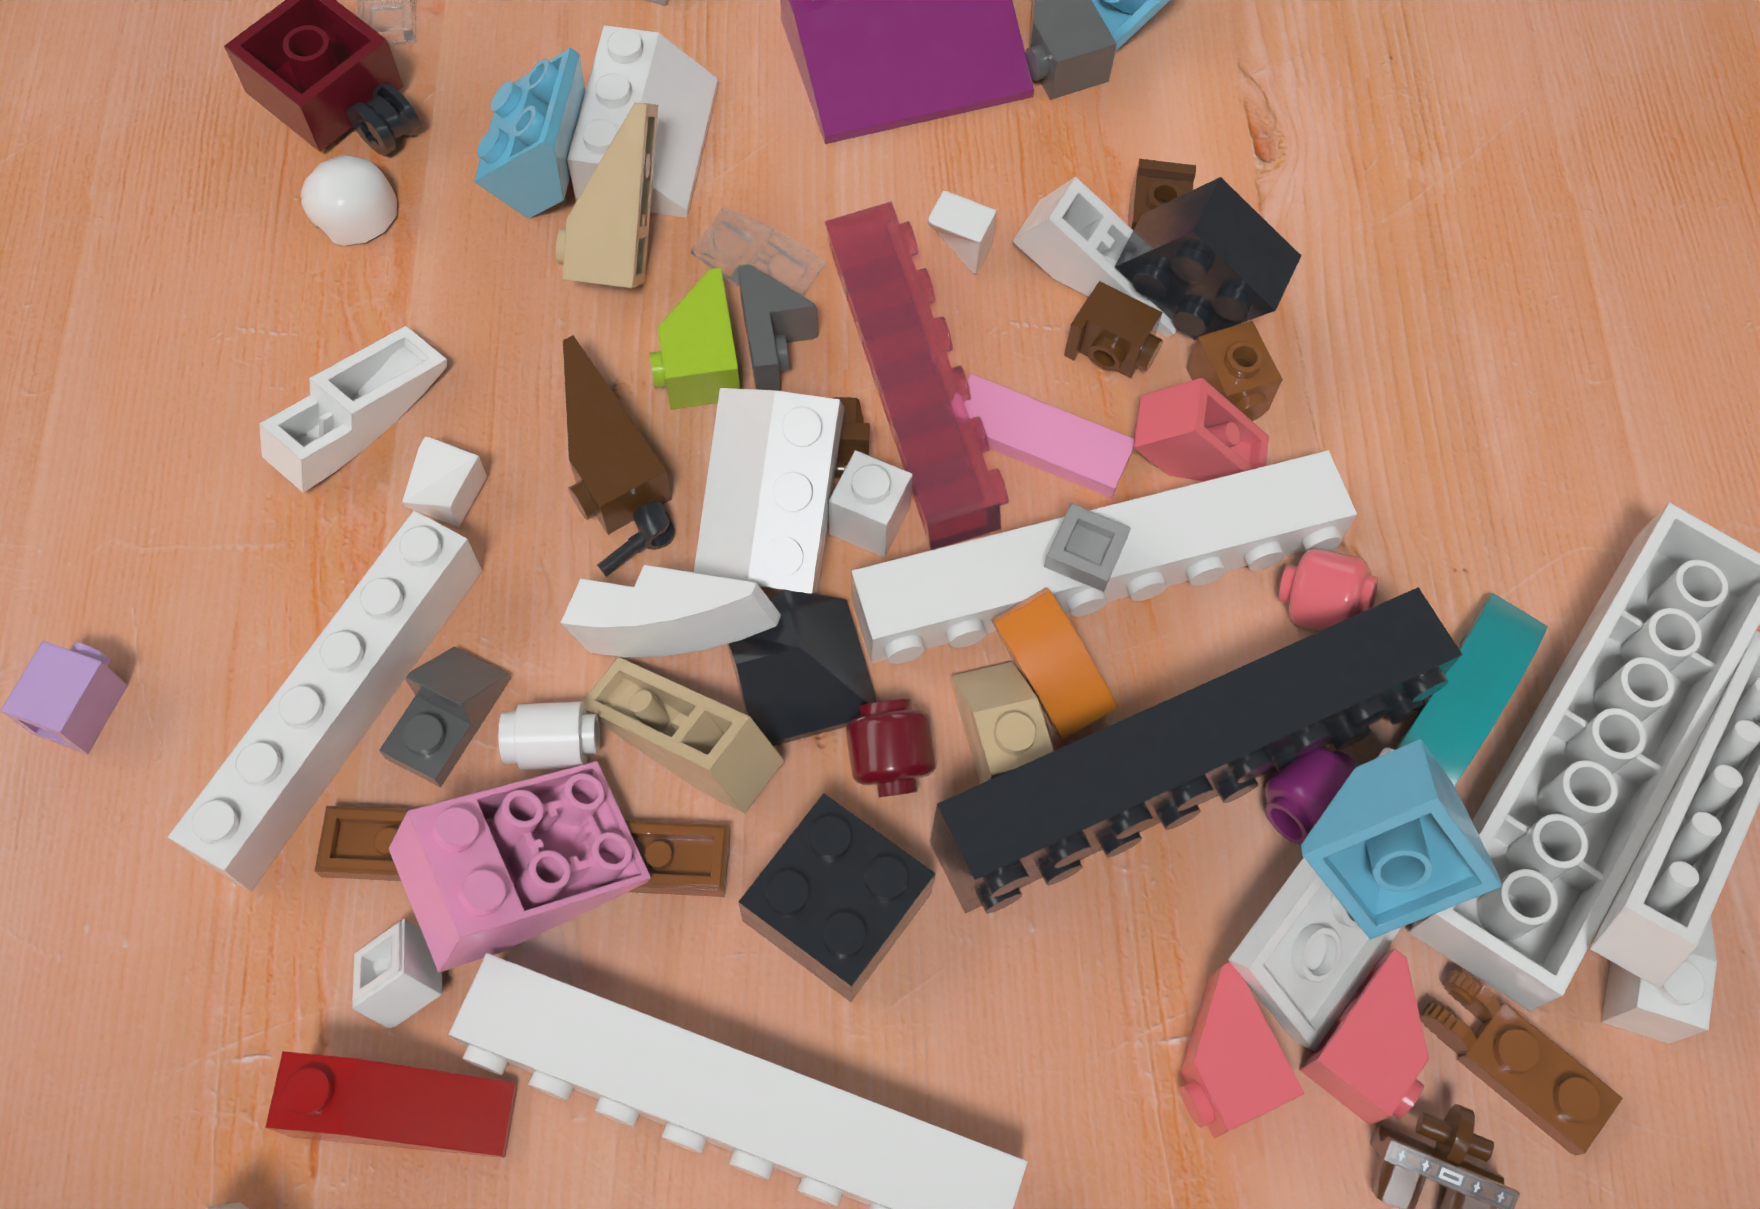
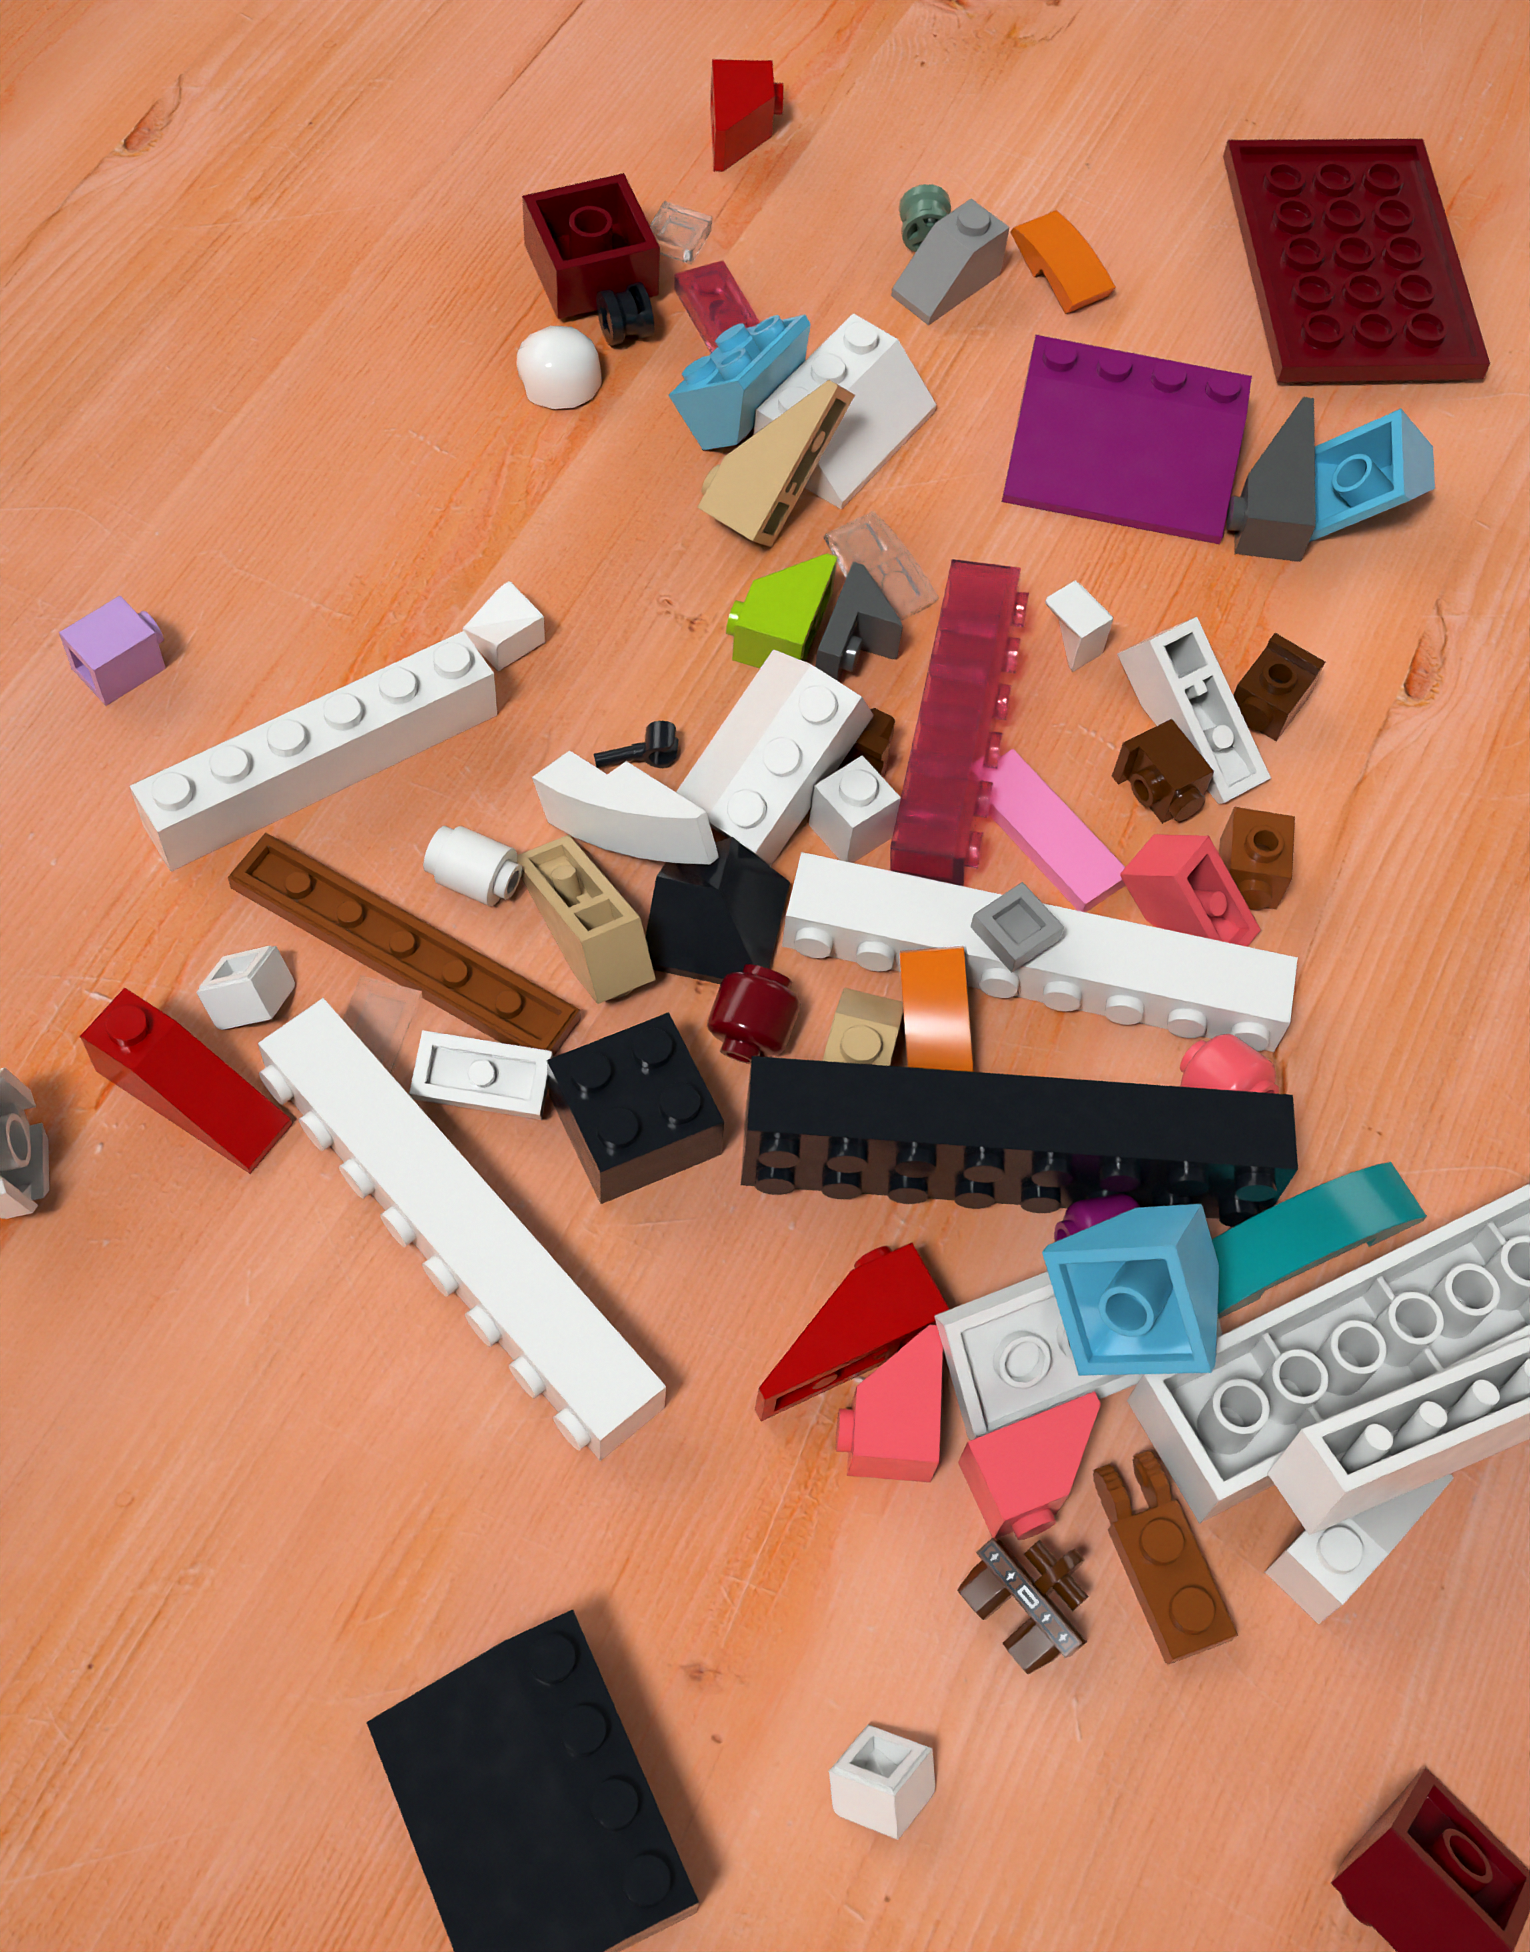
camera: 25 degrees right, 5 degrees down
(349, 407) = (463, 532): white slope -> none
(448, 709) = (407, 806): dark grey slope -> none
(461, 72) = (713, 301): none -> clear pink plate
(514, 862) = (387, 942): bright pink slope -> none
(606, 451) = (653, 660): reddish brown slope -> none
(675, 941) = (481, 1075): none -> white plate
(1154, 991) = (857, 1329): none -> red slope
(1208, 260) = (1279, 742): black brick -> none

